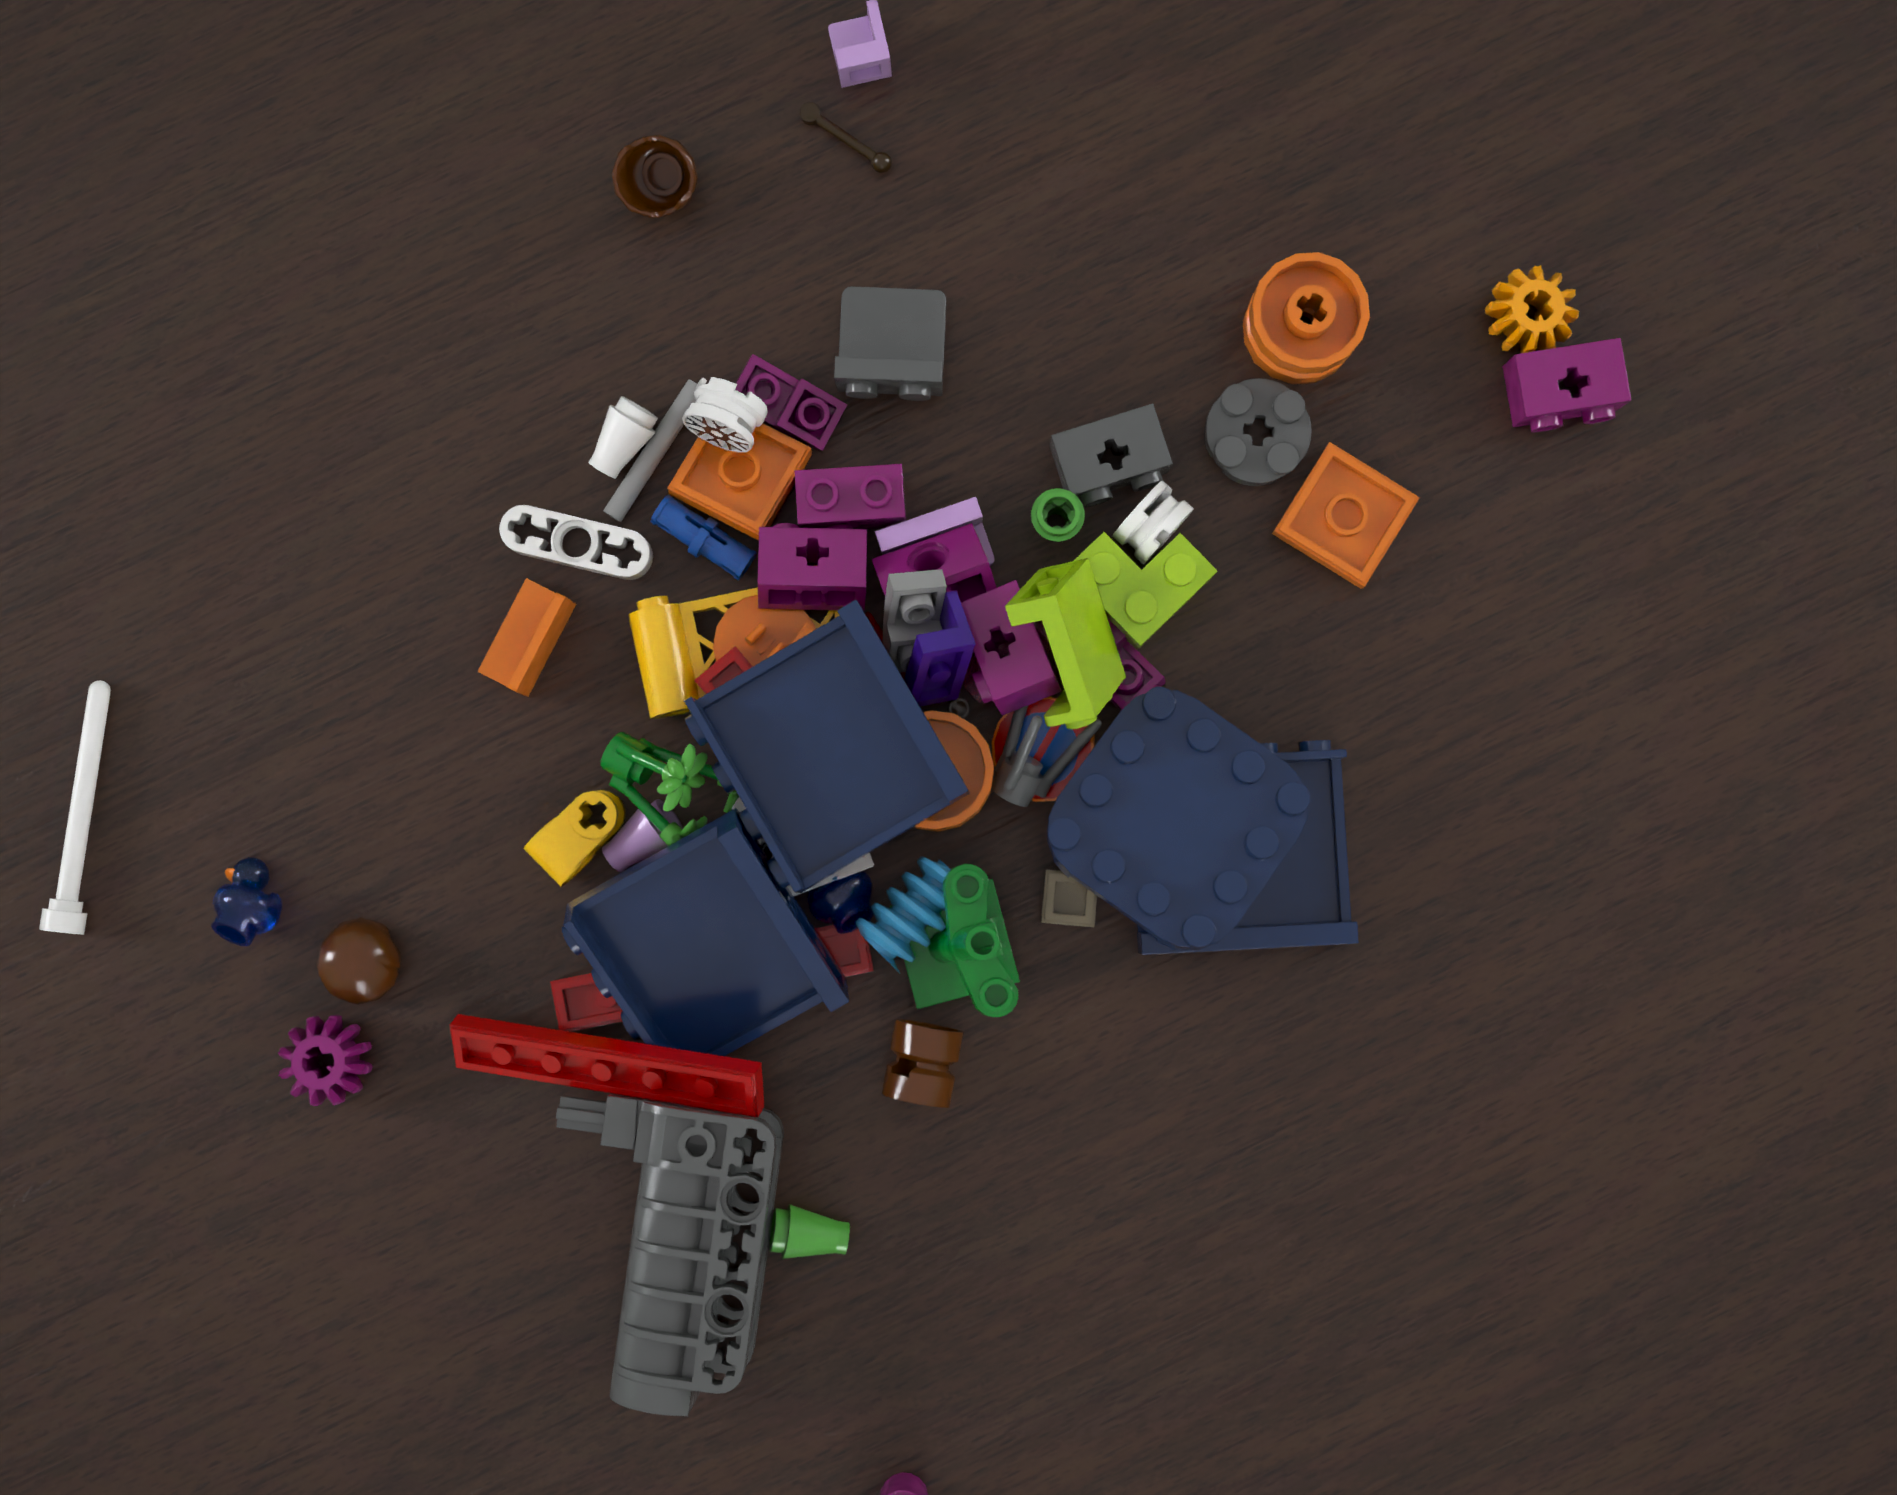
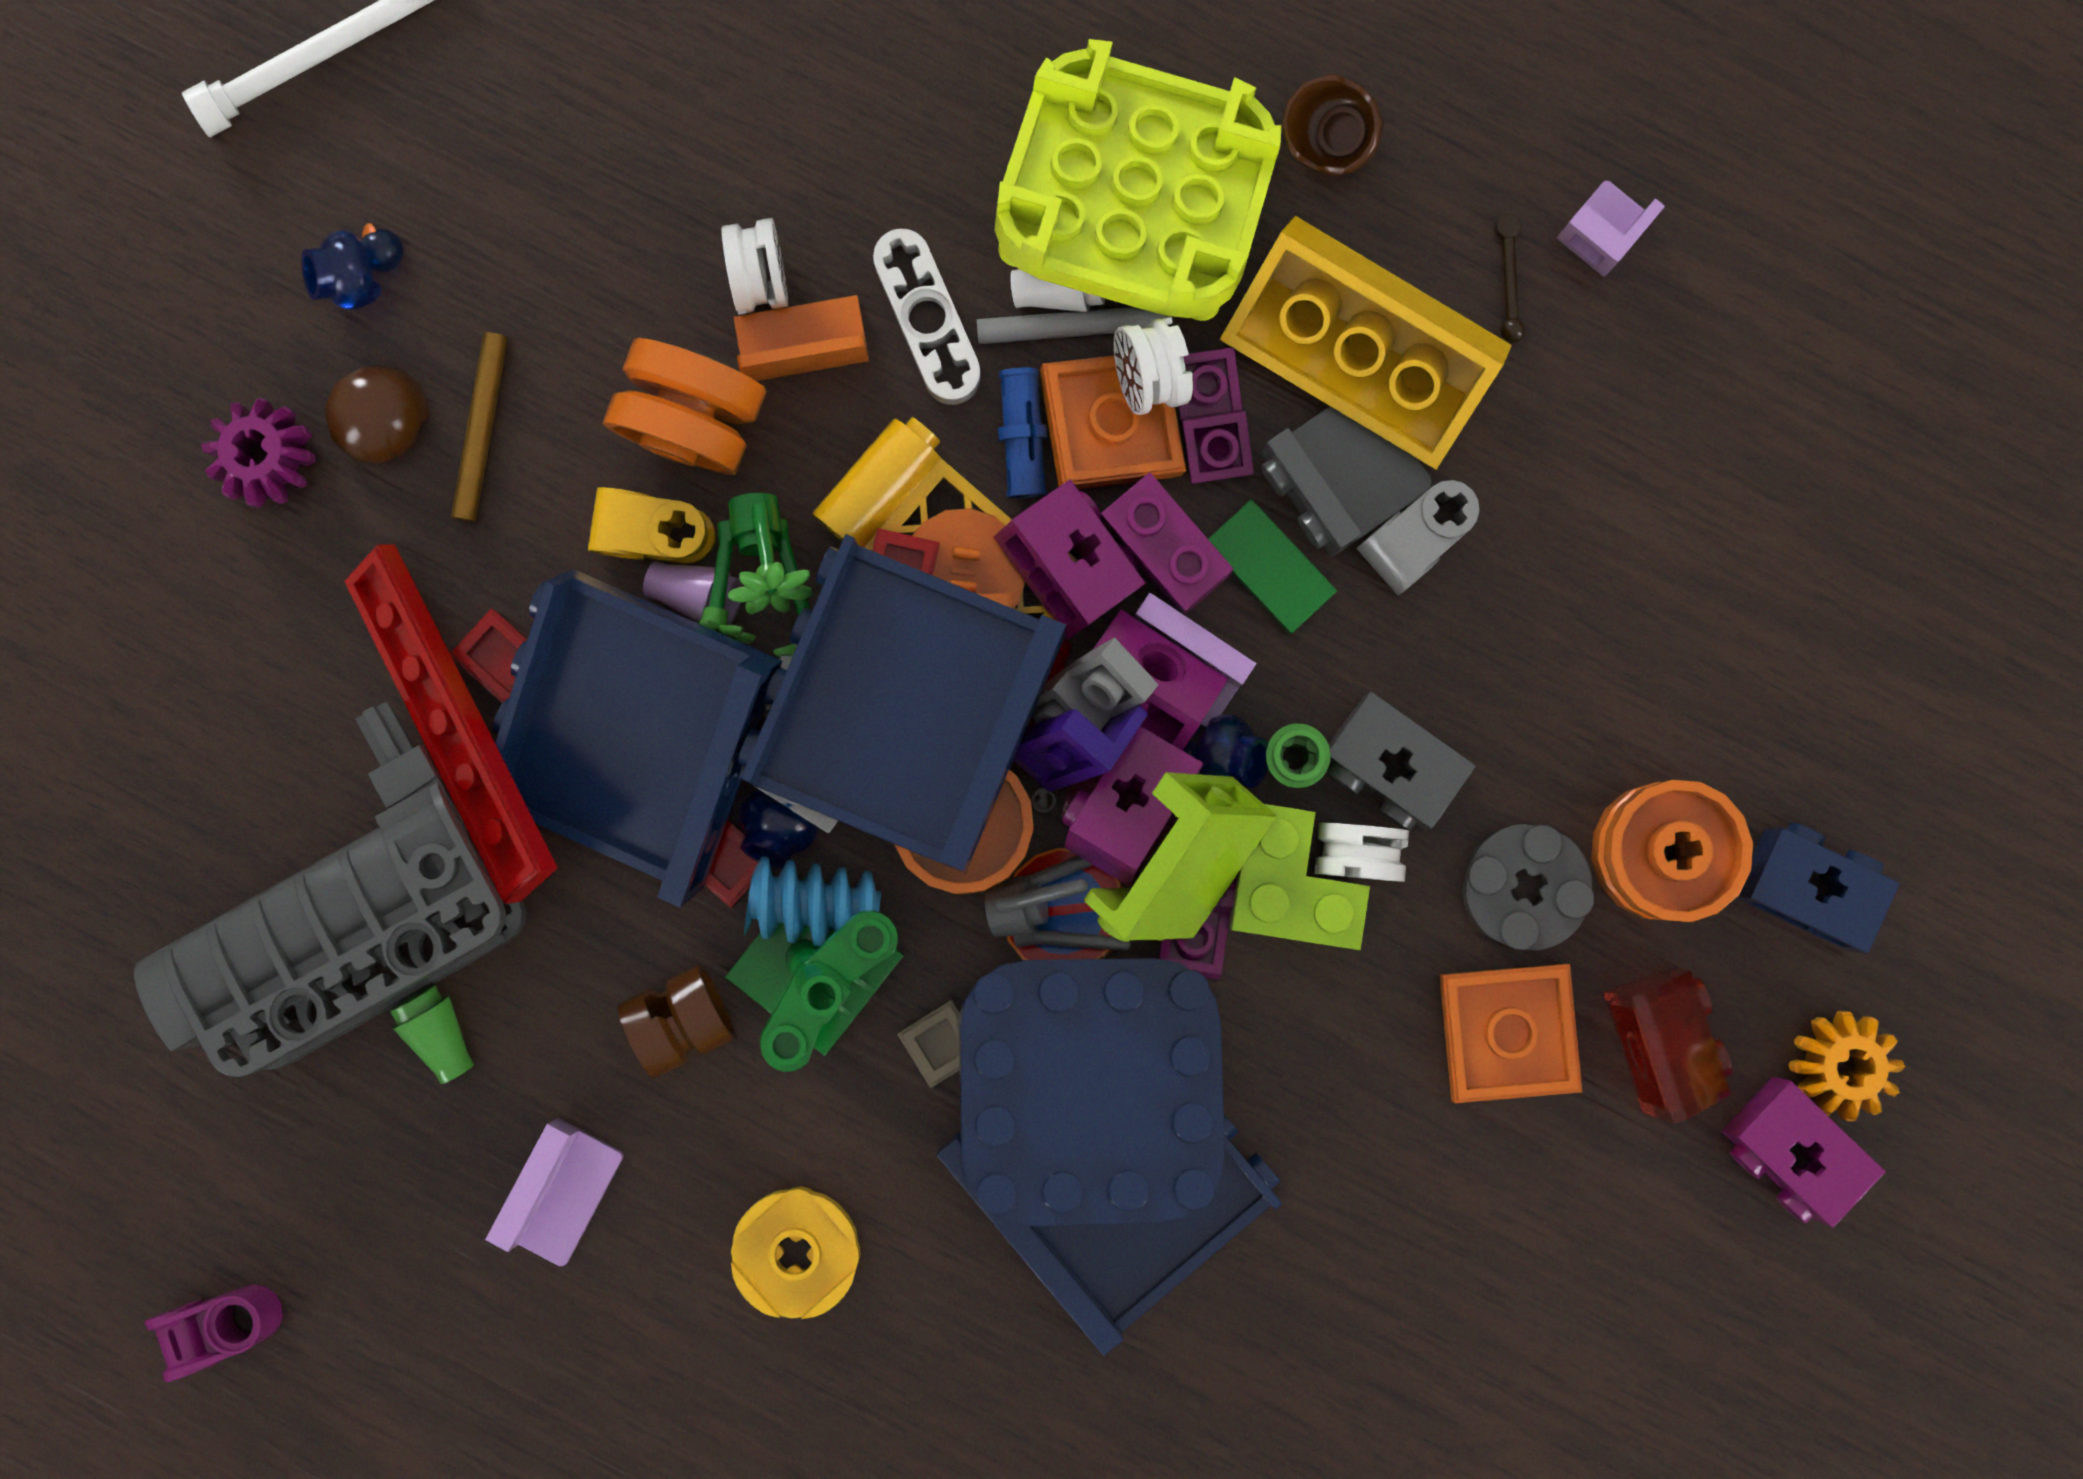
camera: 45 degrees right, 0 degrees up
(421, 898) = (479, 427): none -> pearl gold bar
(451, 635) = (747, 266): none -> white wheel
(514, 747) = (686, 402): none -> orange wheel
(594, 334) = (1136, 183): none -> neon yellow plate
(816, 263) = (1365, 342): none -> yellow slope
(919, 439) = (1271, 567): none -> green tile
(971, 332) = (1413, 539): none -> light grey piece
(977, 1230) = (556, 1193): none -> lavender panel
(1021, 556) = (1231, 750): none -> clear blue animal
(1160, 1119) = (791, 1290): none -> yellow plate
(1425, 221) = (1855, 894): none -> dark blue brick
(1431, 416) = (1670, 1044): none -> clear red slope

